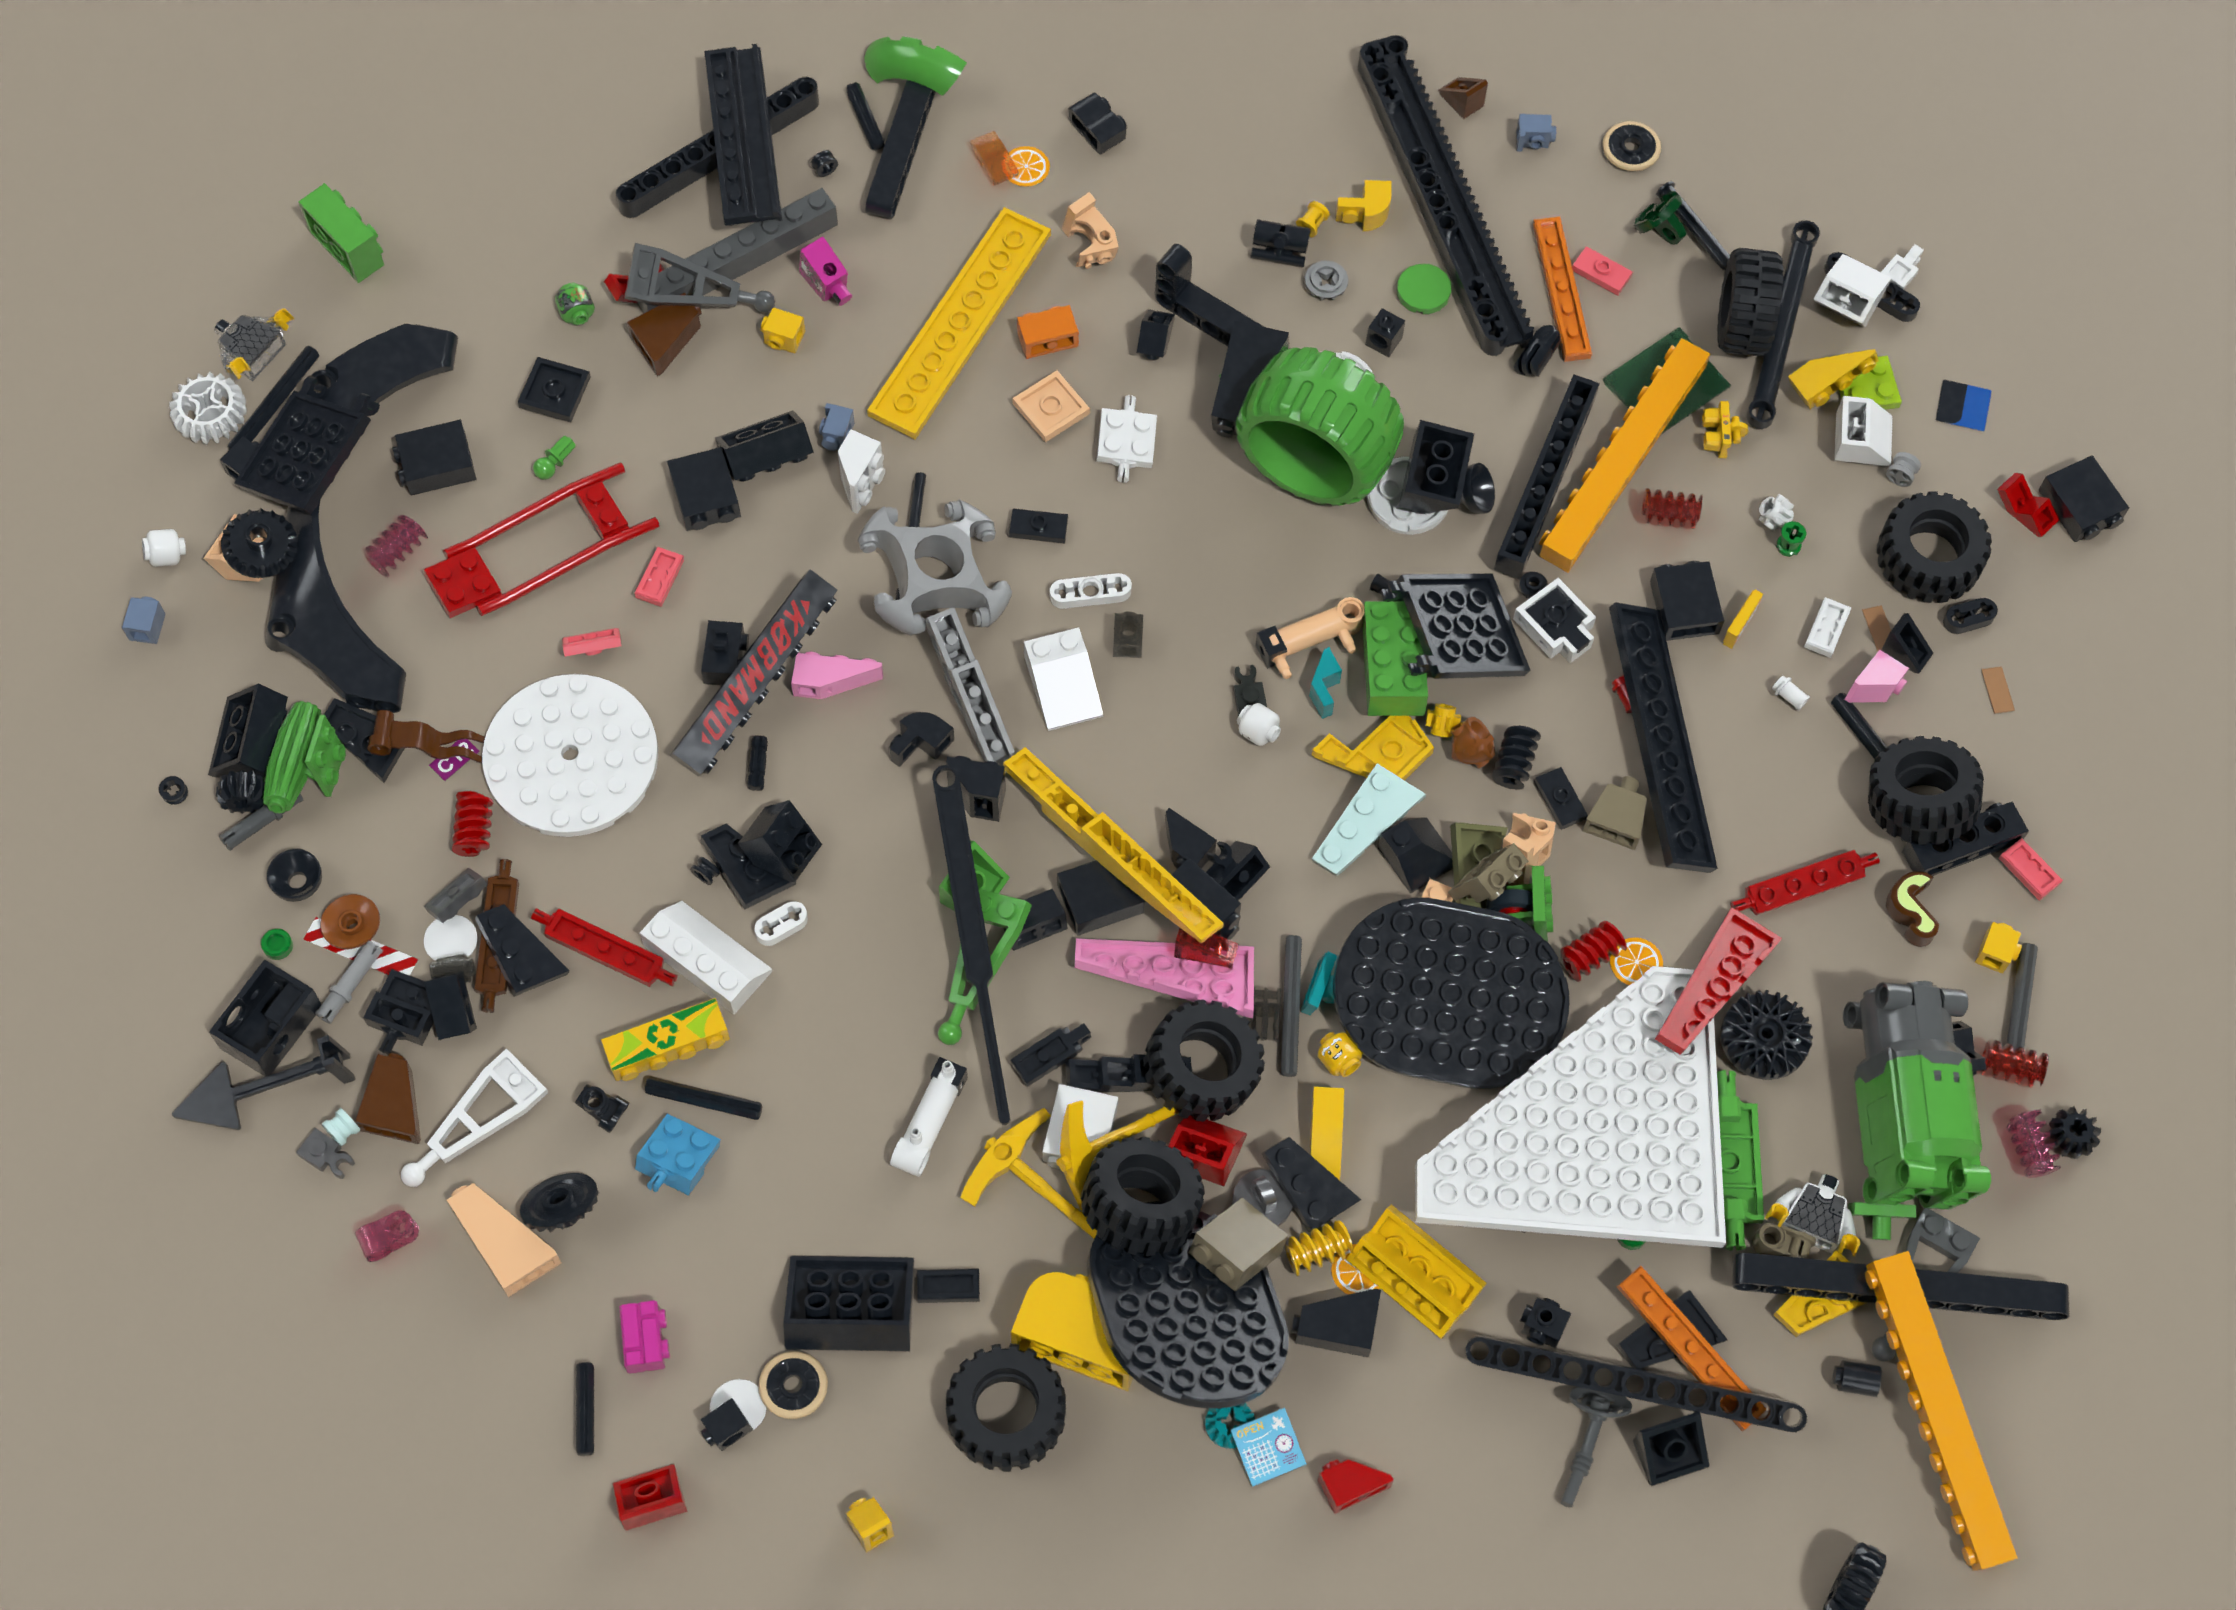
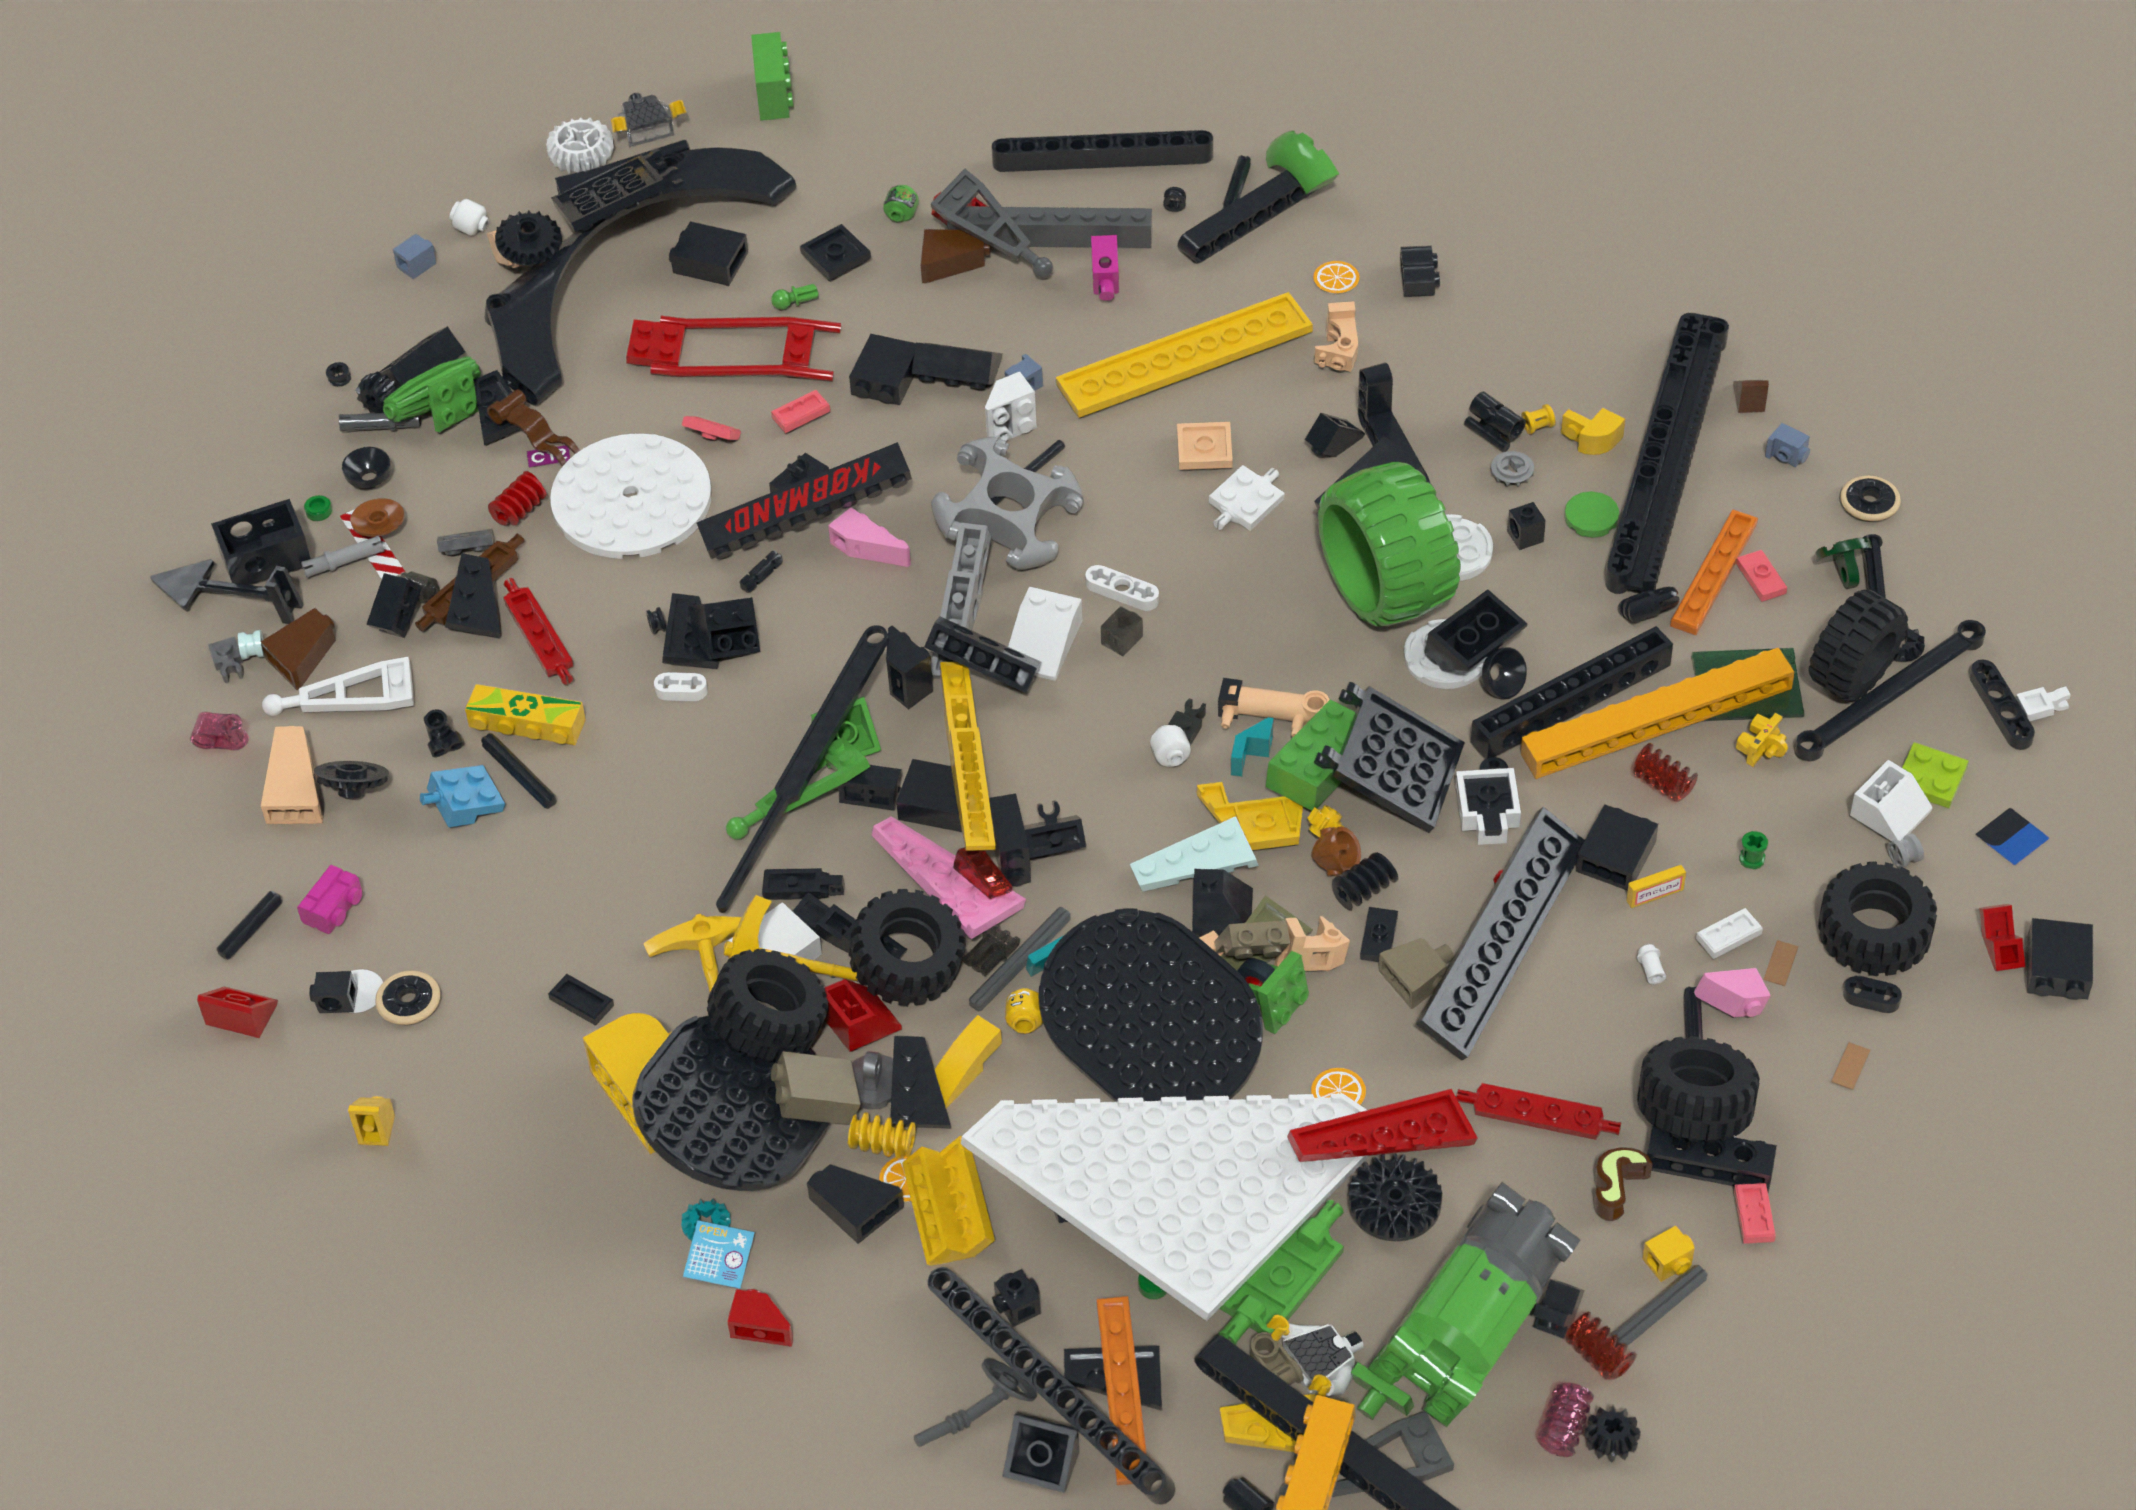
camera: 40 degrees right, 15 degrees down
(394, 543) = (628, 293): clear pink piece -> none
(400, 1011) = (354, 593): black plate -> none
(450, 938) = (440, 567): white sticker -> none
(705, 955) = (605, 675): white slope -> none
(742, 135) = (1120, 145): black plate -> none
(783, 330) = (1041, 294): yellow brick -> none
(849, 1303) = (494, 965): black slope -> none
(914, 1148) = (636, 889): white piece -> none
(921, 731) = (898, 611): black brick -> none
(994, 157) = (1313, 258): clear orange slope -> none
(997, 1367) = (546, 1130): black tyre -> none
(1038, 525) = (1121, 523): black plate -> none
(1038, 734) = (982, 654): none -> black brick
(1047, 331) = (1247, 393): orange brick -> none
(1187, 840) = (1033, 791): black slope -> none
(1590, 948) = (1301, 1053): red piece -> none
(1776, 512) = (1757, 820): white gear -> none
(1826, 375) = (1896, 742): yellow slope -> none
(1852, 290) = (1972, 691): white slope -> none
(1908, 645) = (1789, 980): black slope -> none

